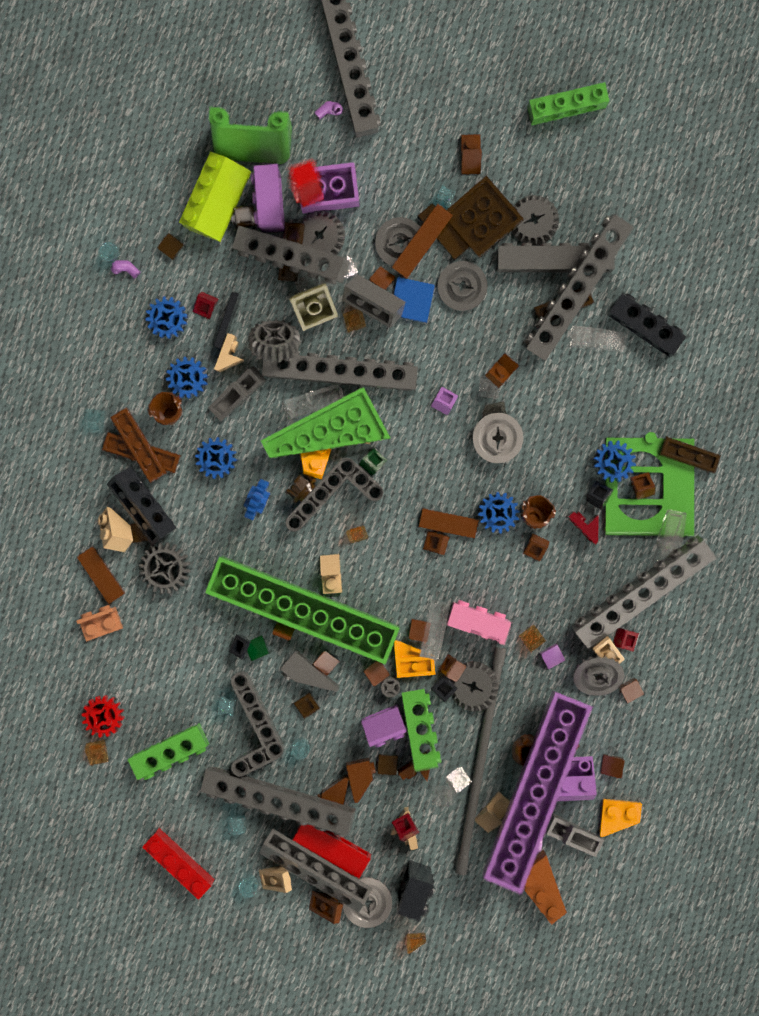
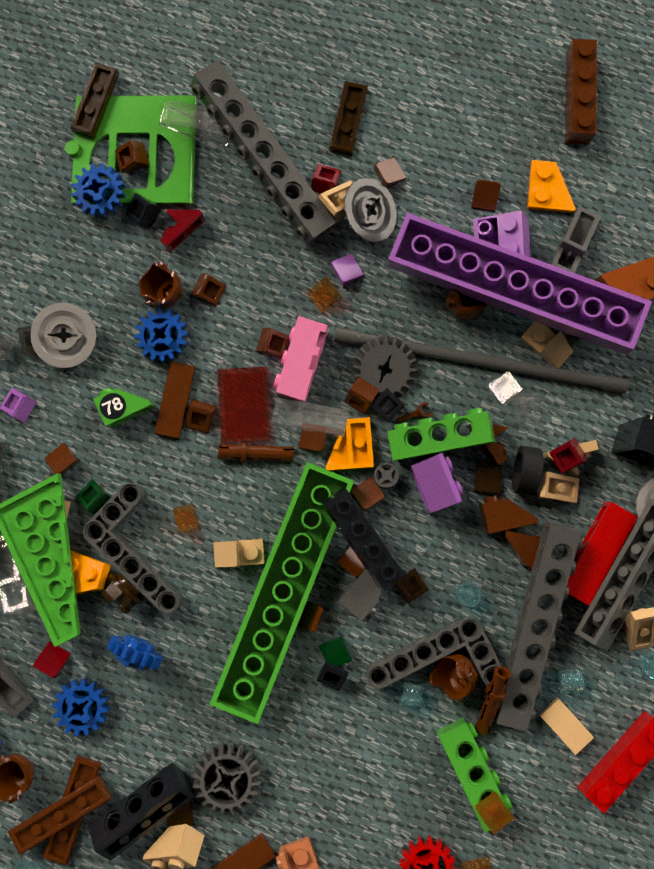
camera: 90 degrees left, 5 degrees down
(142, 767) = (494, 812): none -> clear orange slope
(203, 820) = (566, 726): none -> tan tile
(228, 769) = (495, 694): none -> reddish brown pin
(240, 738) = (455, 676): none -> reddish brown cap
(250, 434) = (51, 660): none -> dark red slope
(341, 671) = (363, 539): none -> black brick
(381, 818) = (558, 487): none -> tan slope
(394, 795) = (527, 470): none -> black tyre
(402, 436) = (61, 459): none -> reddish brown slope
(407, 586) = (249, 452): none -> reddish brown pin
(439, 711) = (414, 414): none -> reddish brown hand
(443, 481) = (119, 406): none -> bright green slope
(445, 576) = (244, 404): none -> clear red tile
(494, 598) = (272, 342): none -> reddish brown slope
(676, 657) = (348, 118): none -> dark brown tile
(697, 843) = (581, 91): none -> reddish brown brick

